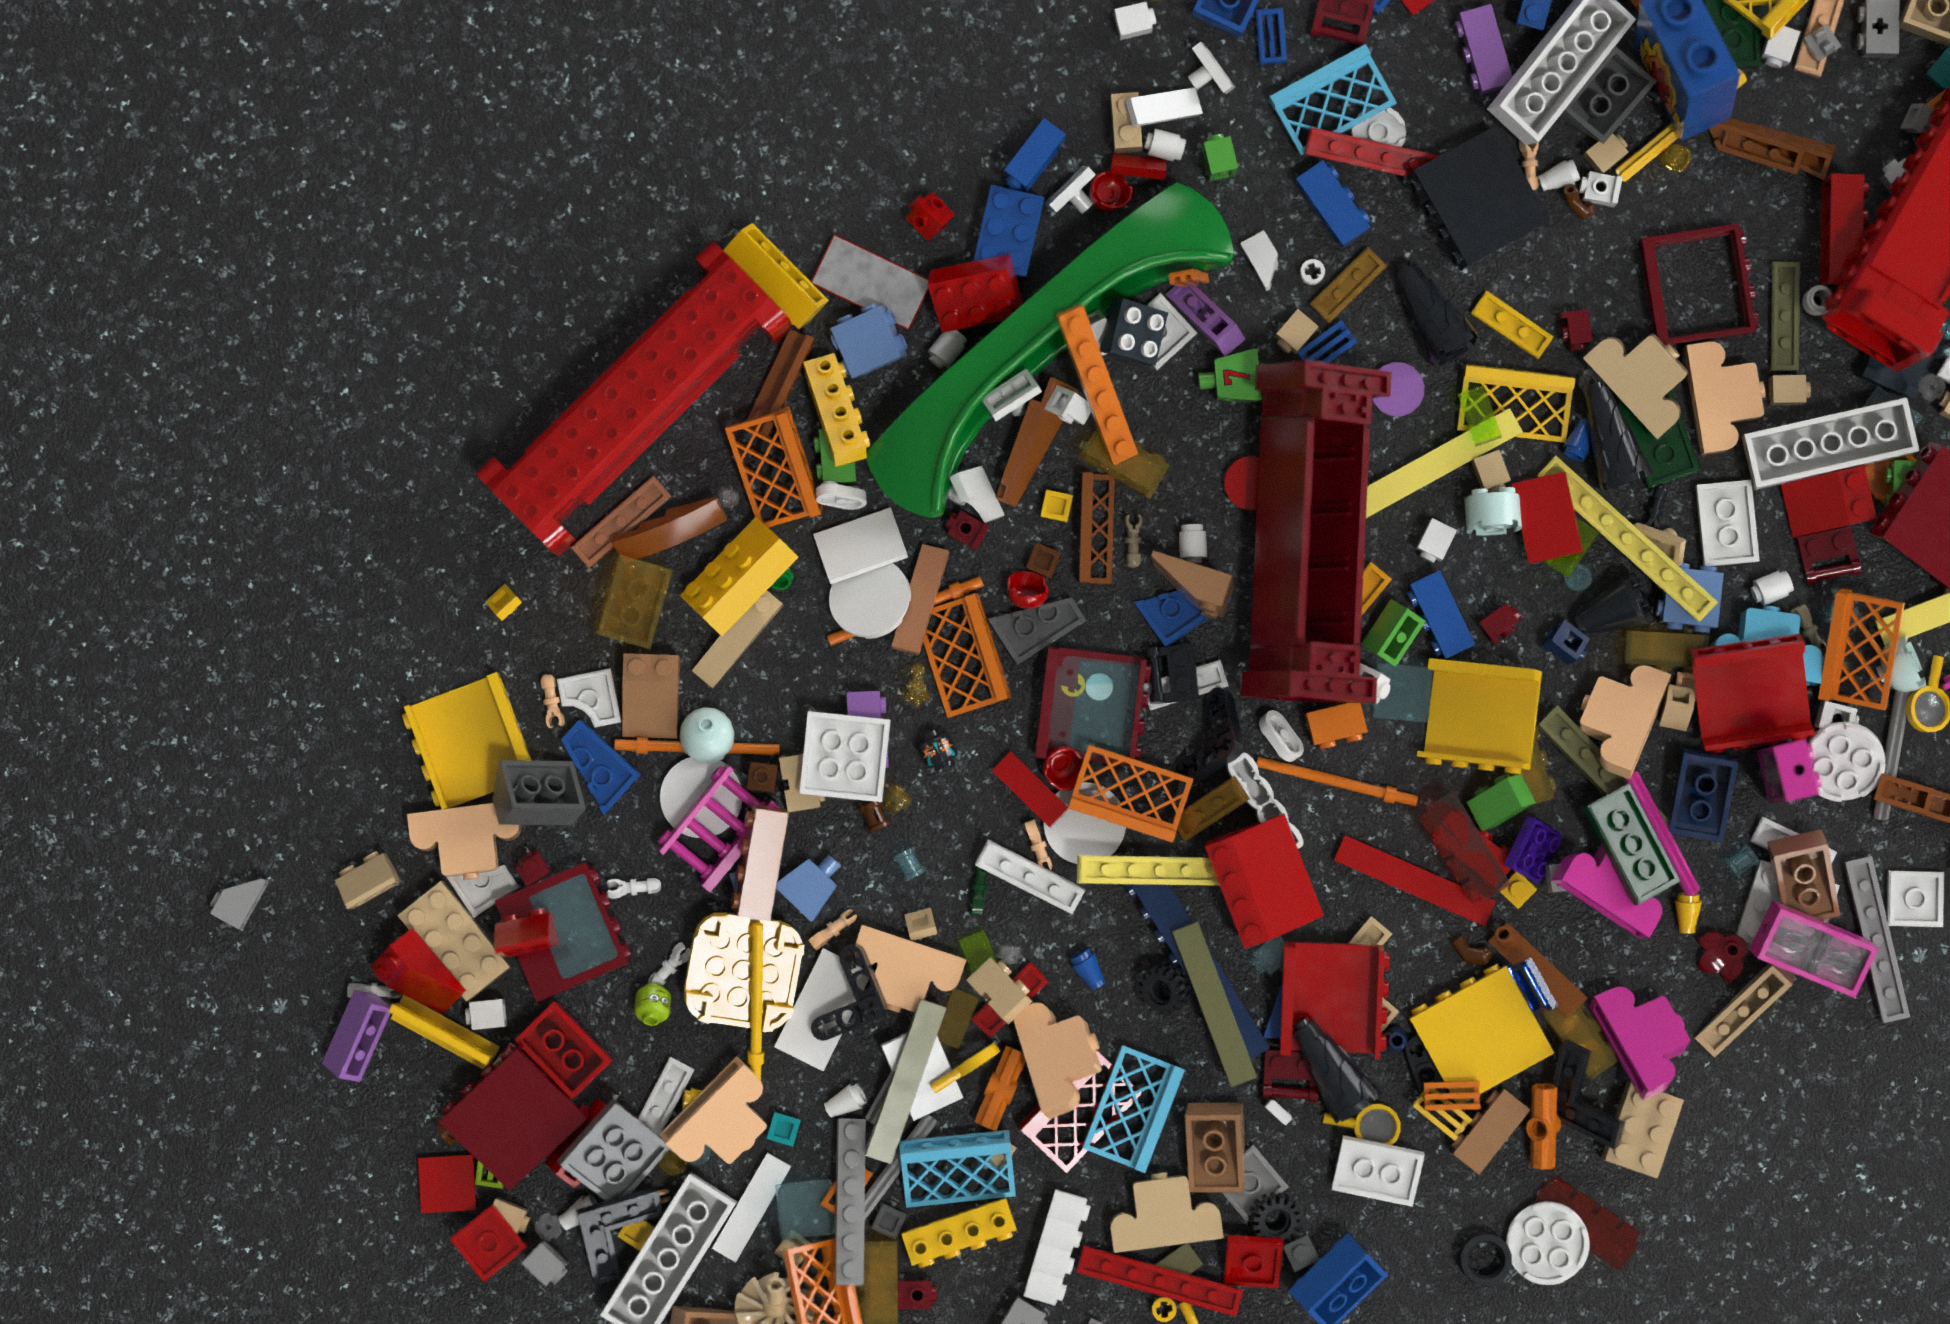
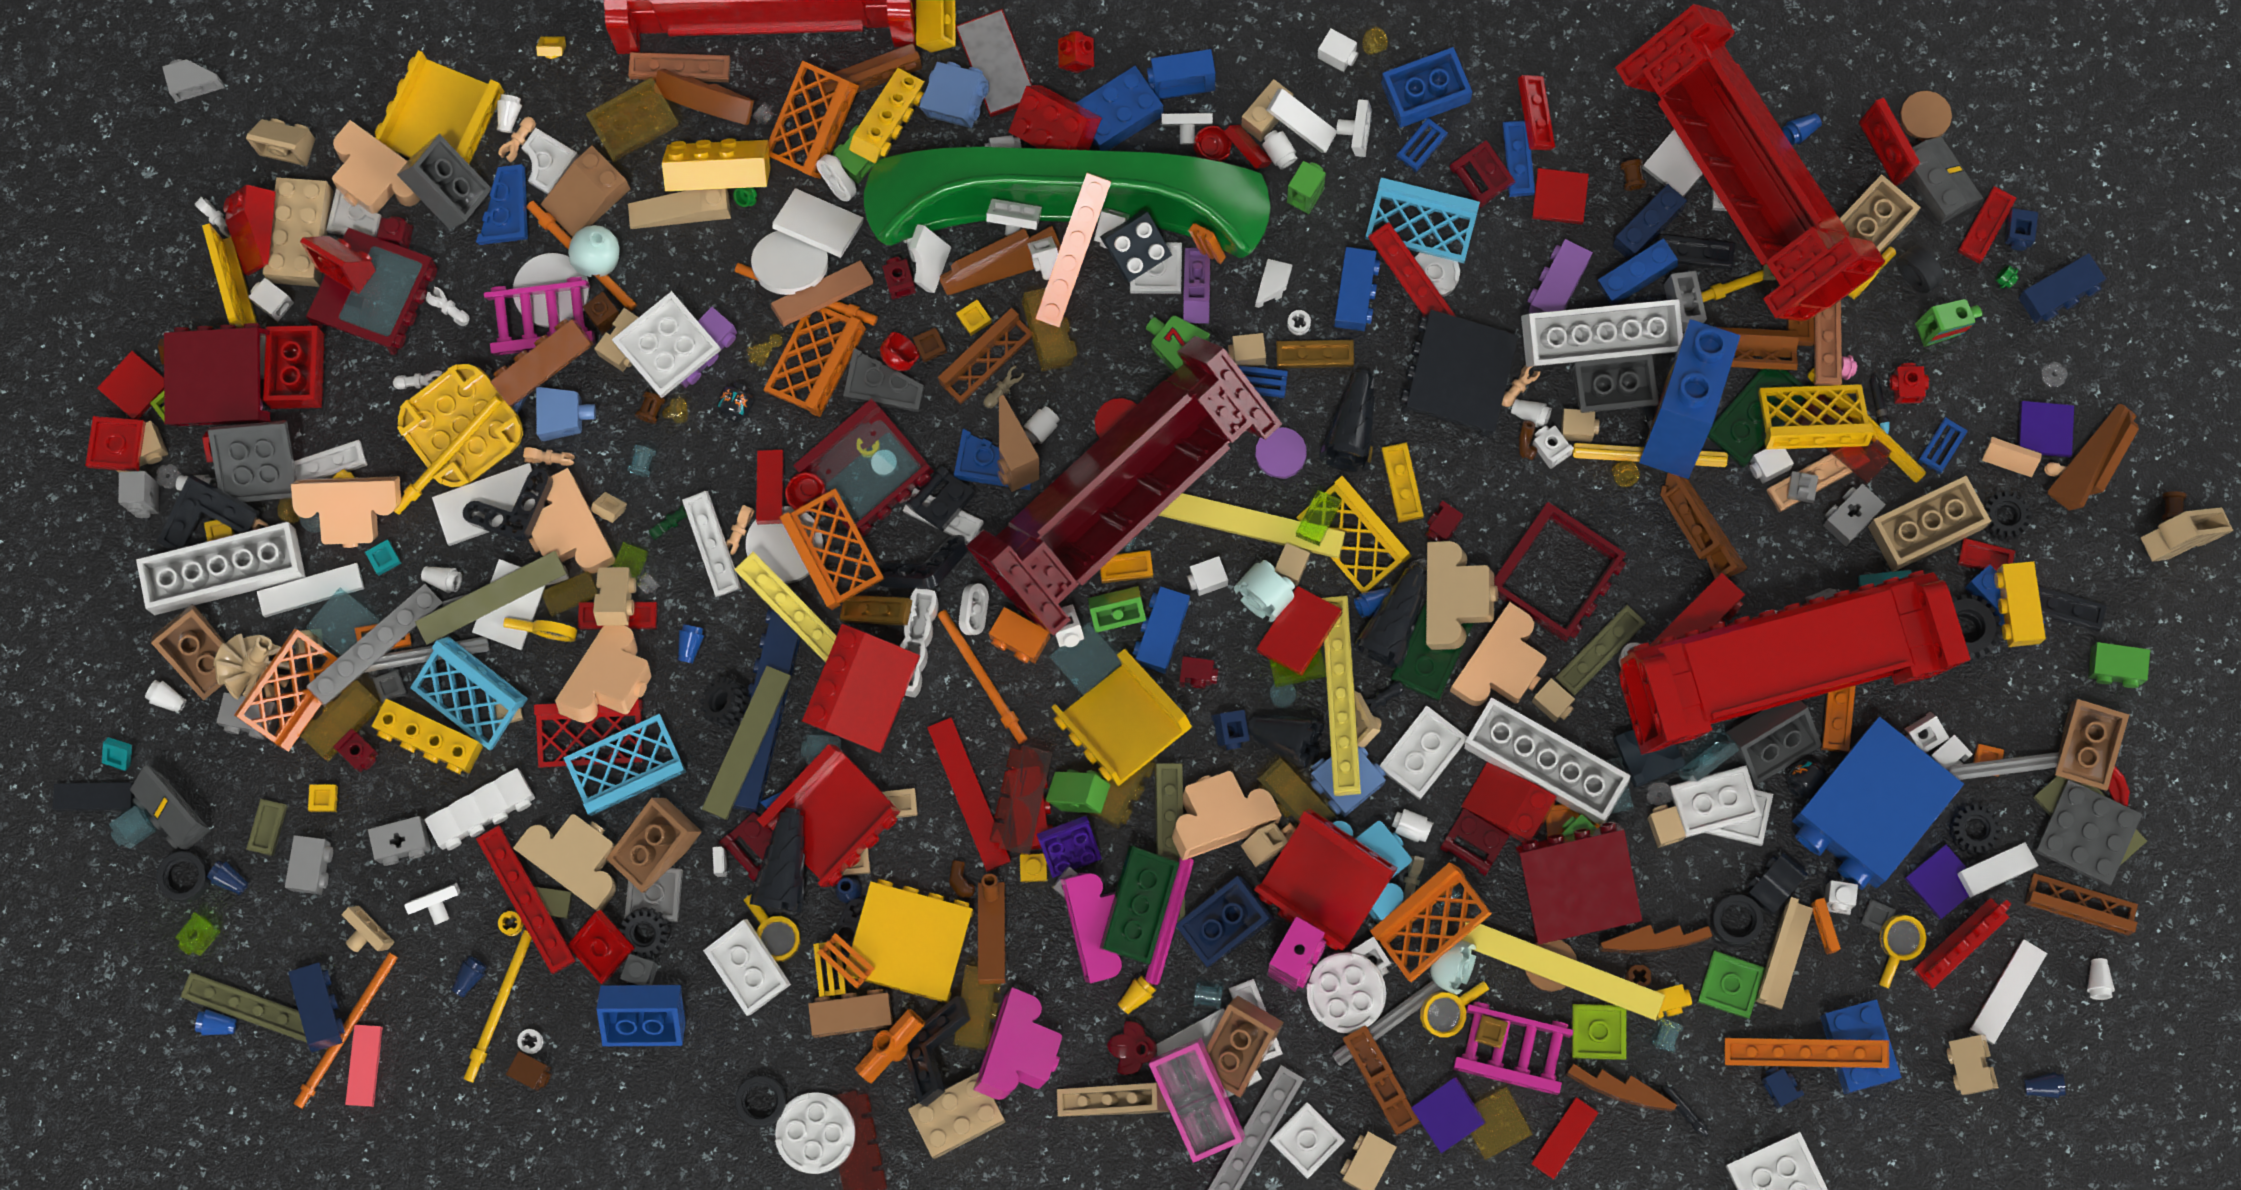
camera: 50 degrees right, 10 degrees down
(357, 1036) = (171, 231): medium lavender brick -> none
(522, 687) = (508, 111): none -> white cone
(652, 1004) = (381, 392): lime head -> none
(1000, 1088) = (549, 667): orange piece -> none
(1532, 986) = (975, 938): clear blue tile -> none

